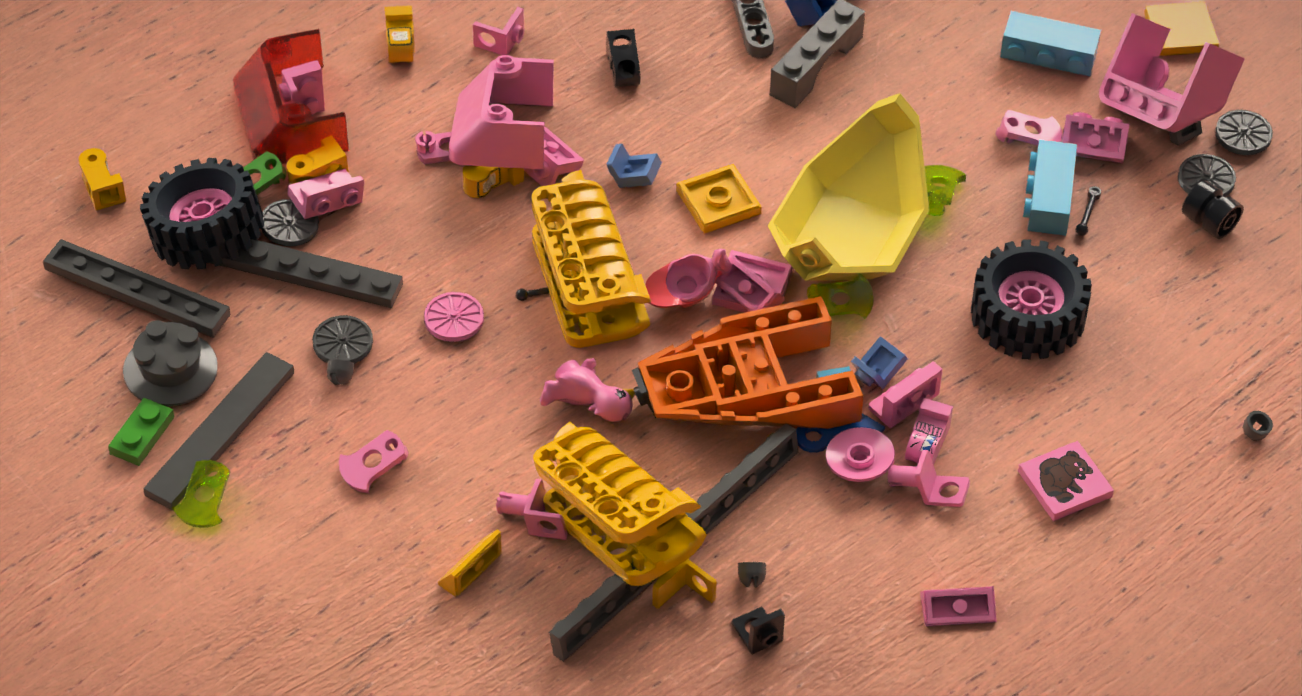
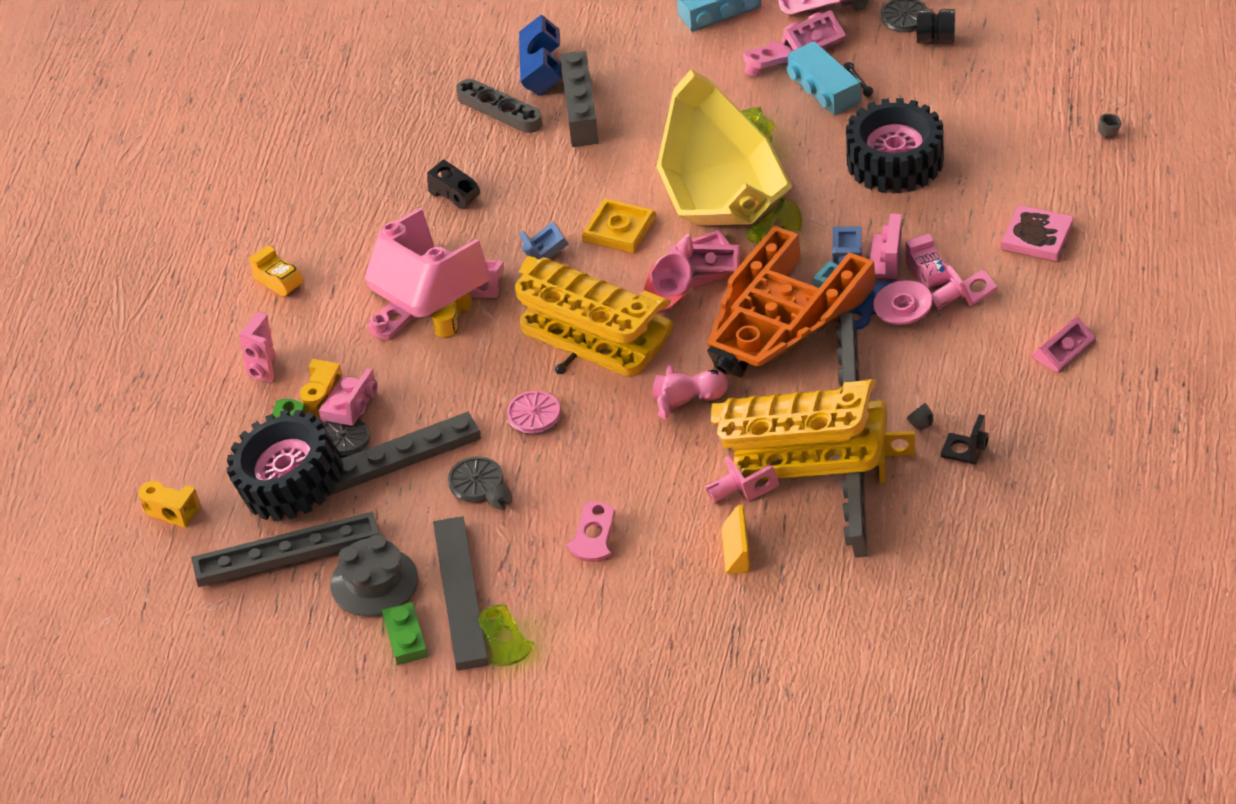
camera: 35 degrees left, 5 degrees down
(267, 122) = (240, 376): clear red windscreen -> none
(505, 38) = (352, 224): bright pink bracket -> none

